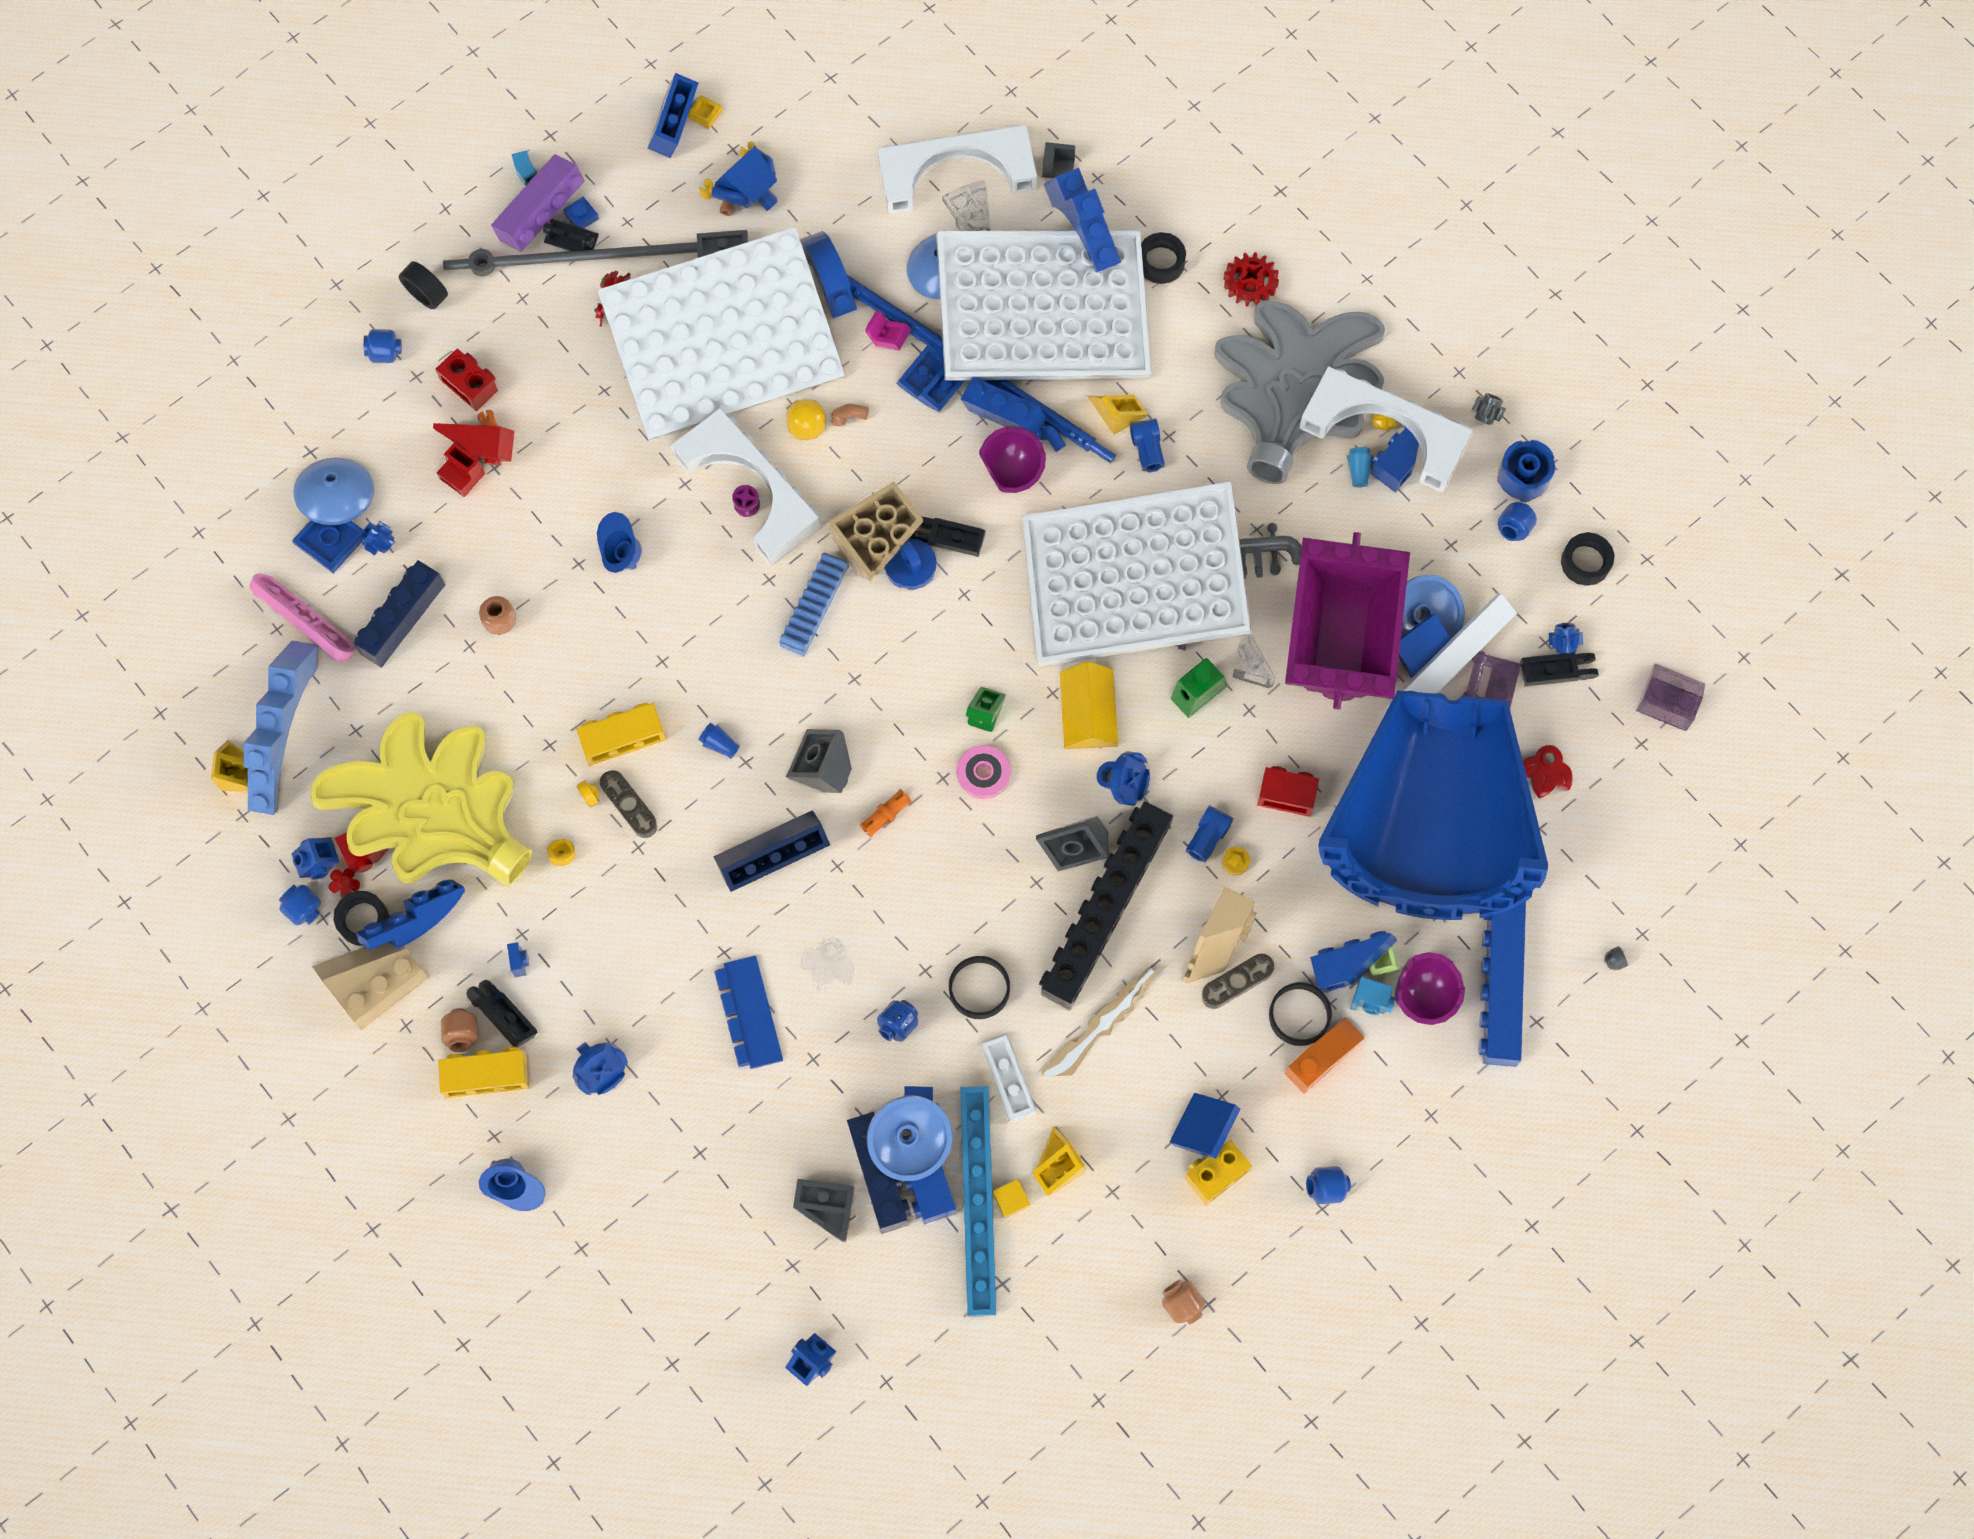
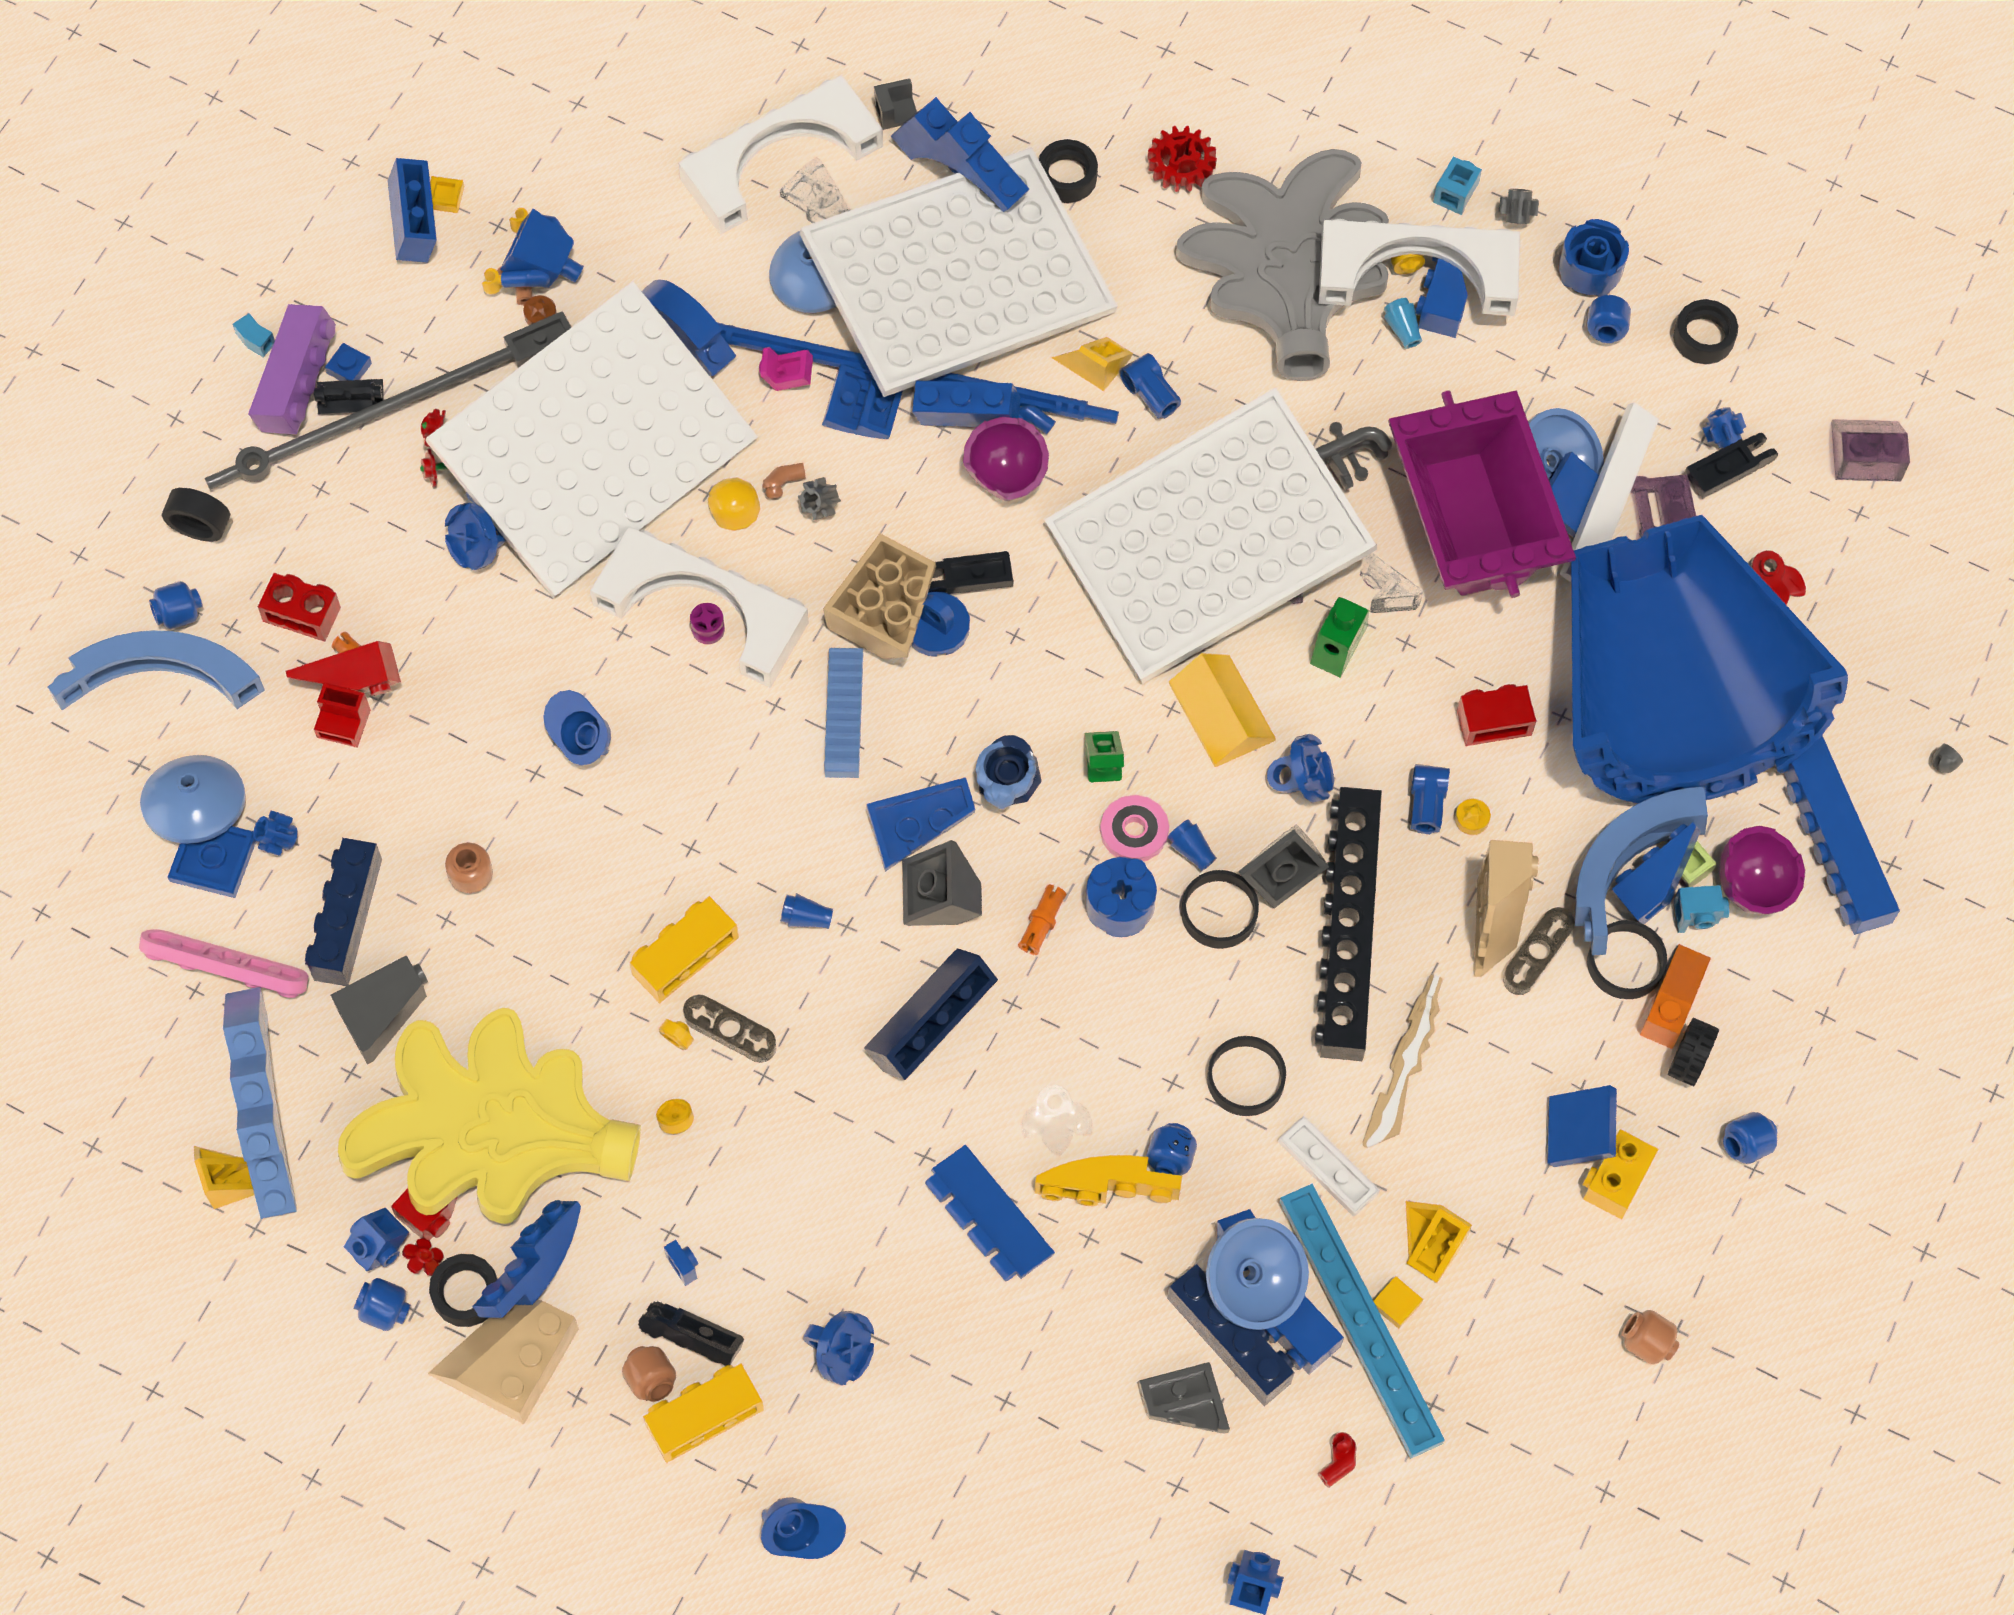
camera: 25 degrees left, 5 degrees down
(352, 373) = (157, 652): none -> medium blue arch
(394, 690) = (380, 1005): none -> dark grey slope
(607, 373) = (472, 536): none -> blue tile
(732, 222) = (538, 308): none -> dark orange tile
(829, 703) = (917, 818): none -> blue wing
(833, 1017) = (1092, 1177): none -> yellow slope
(866, 438) = (819, 498): none -> dark grey gear
(908, 694) = (1007, 772): none -> piece
(918, 1297) = (1343, 1459): none -> red arm
(945, 804) = (1121, 878): none -> blue brick
(1008, 882) = (1222, 876): none -> black tyre
(1018, 799) = (1191, 843): none -> blue cone
(1313, 1104) = (1693, 1051): none -> black tyre
(1334, 924) = (1620, 842): none -> medium blue arch
(1441, 378) = (1457, 185): none -> dark azure brick

